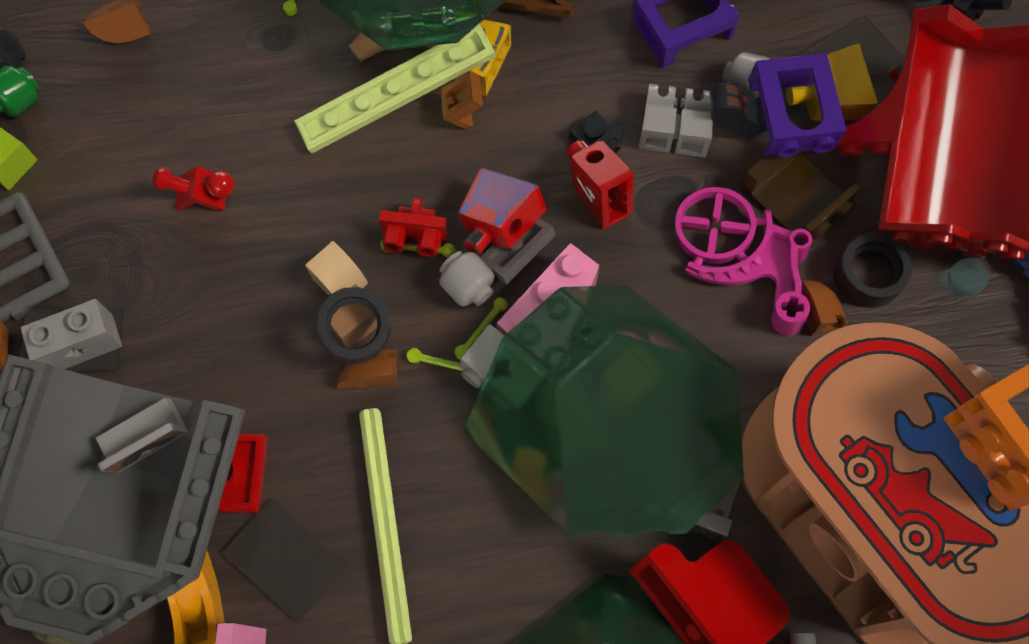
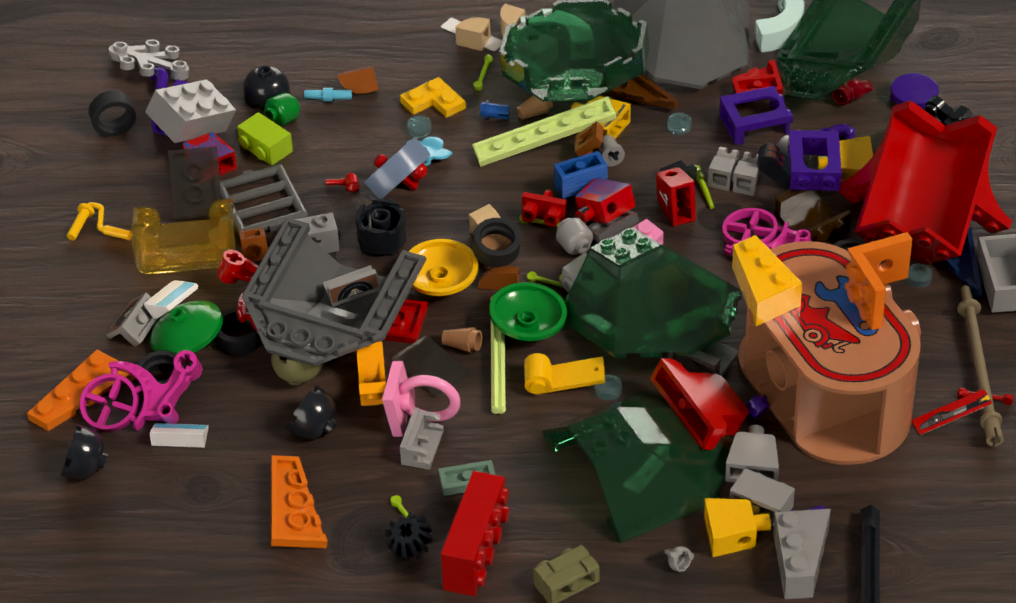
camera: 10 degrees right, 25 degrees down
(77, 52) = (328, 94): none -> medium azure bar
(125, 211) = (350, 181): none -> red hand
(176, 302) = (381, 227): none -> black brick
(188, 189) = (397, 168): none -> sand blue brick
(214, 93) = (419, 126): none -> clear light blue tile
(229, 31) = (435, 94): none -> yellow plate
(231, 137) = (434, 146): none -> medium azure plate
(259, 358) = (448, 267): none -> yellow dish
(318, 53) = (494, 110): none -> blue pin
(328, 505) = (464, 339): none -> medium nougat cone
(426, 423) = (527, 311): none -> green dish
(458, 163) = (577, 173): none -> blue brick
(490, 557) = (545, 378): none -> yellow door
(495, 110) = (611, 151): none -> light grey bush
(561, 565) = (610, 389): none -> clear light blue tile
(580, 41) = (679, 123): none -> clear light blue tile
(633, 151) = (701, 181): none -> lime piece
(794, 581) = (757, 406): none -> dark purple plate
(802, 27) = (845, 130): none -> dark purple arm
(821, 441) = (764, 280): none -> yellow wedge

